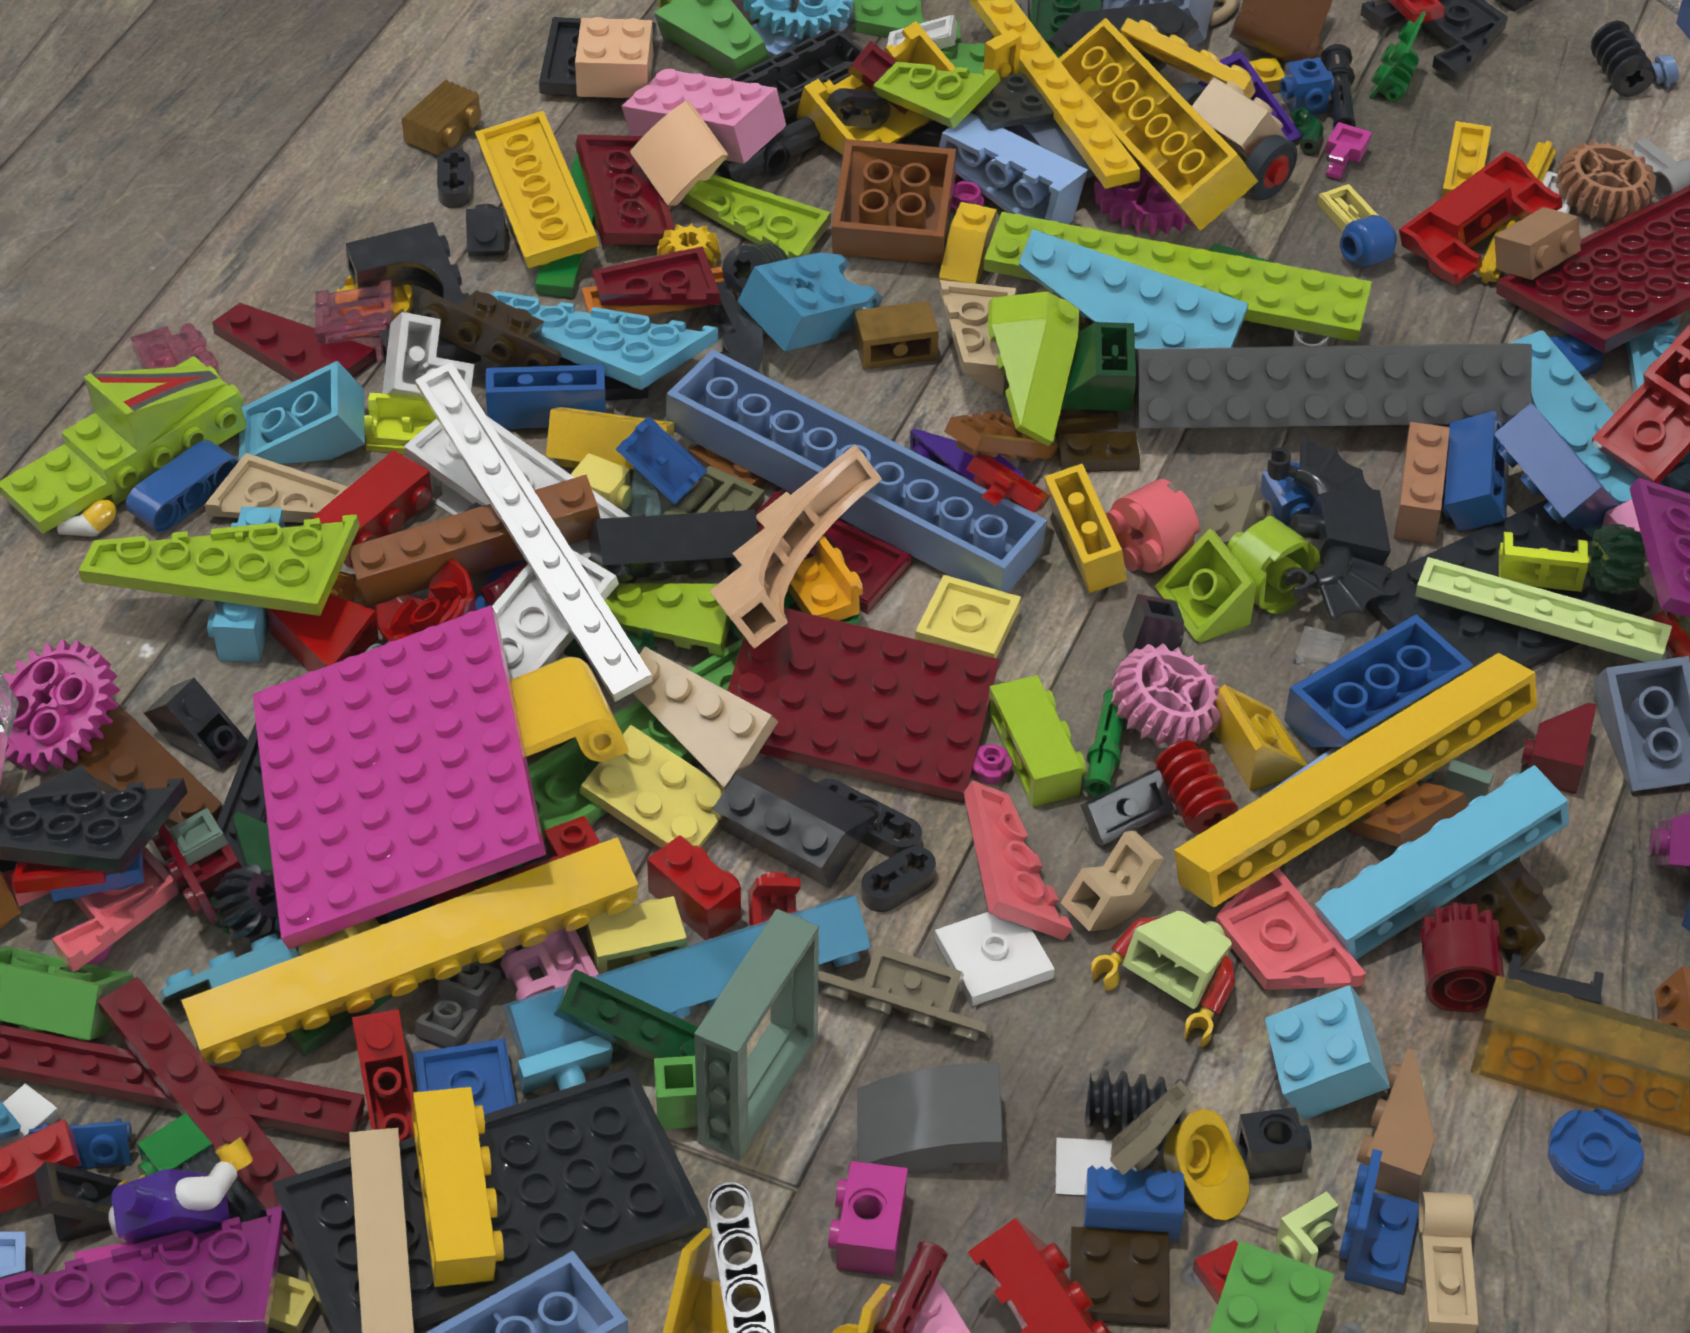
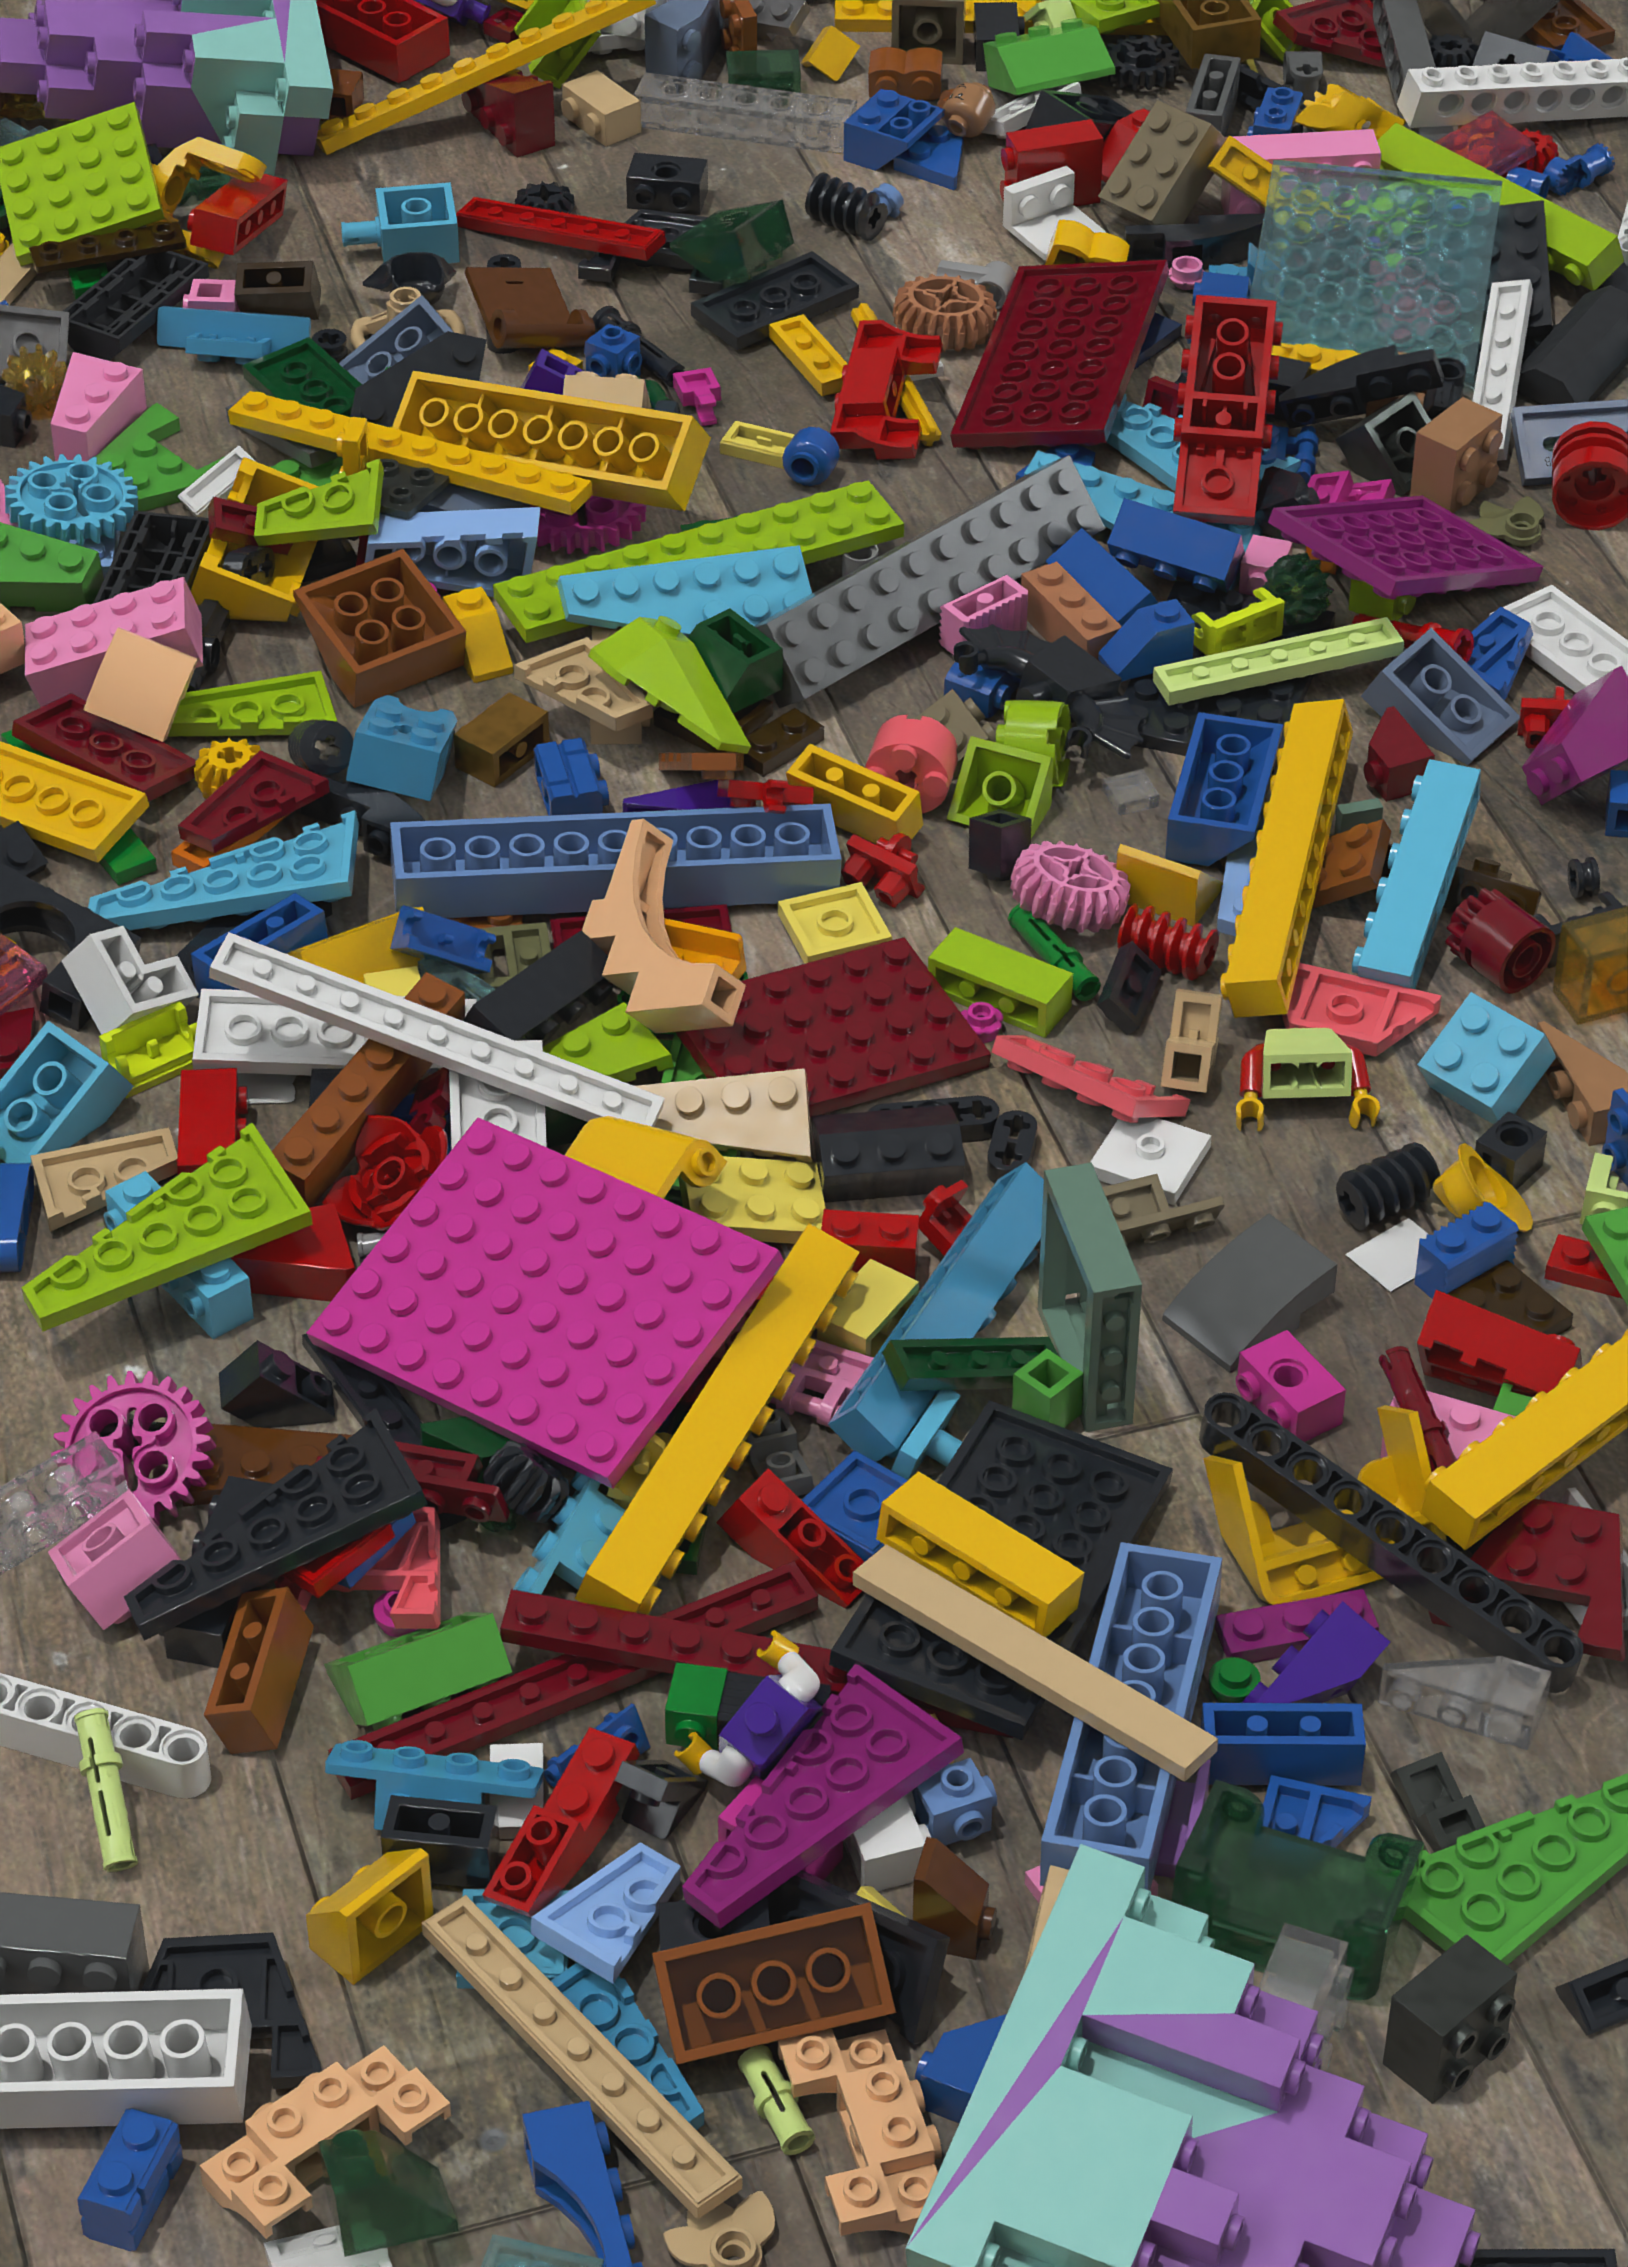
camera: 40 degrees left, 5 degrees down
(198, 836) = (422, 1452): sand green tile -> none
(490, 329) = (160, 918): dark brown bracket -> none
(903, 396) = (569, 778): none -> blue brick
(1068, 590) = (887, 861): none -> red hips
(1138, 1140) = (1437, 1187): dark tan wing -> none
(1177, 54) = (527, 373): yellow plate -> none
(1359, 438) = (997, 603): none -> bright pink brick
(1399, 64) = (665, 294): green hinge -> none
(1450, 534) = (1150, 639): none -> blue slope
(1496, 44) = (736, 241): none -> clear green slope
(1501, 103) = (791, 289): none -> black plate
(1537, 243) = (958, 384): medium nougat brick -> none
(1608, 949) = (1583, 877): none -> black bush

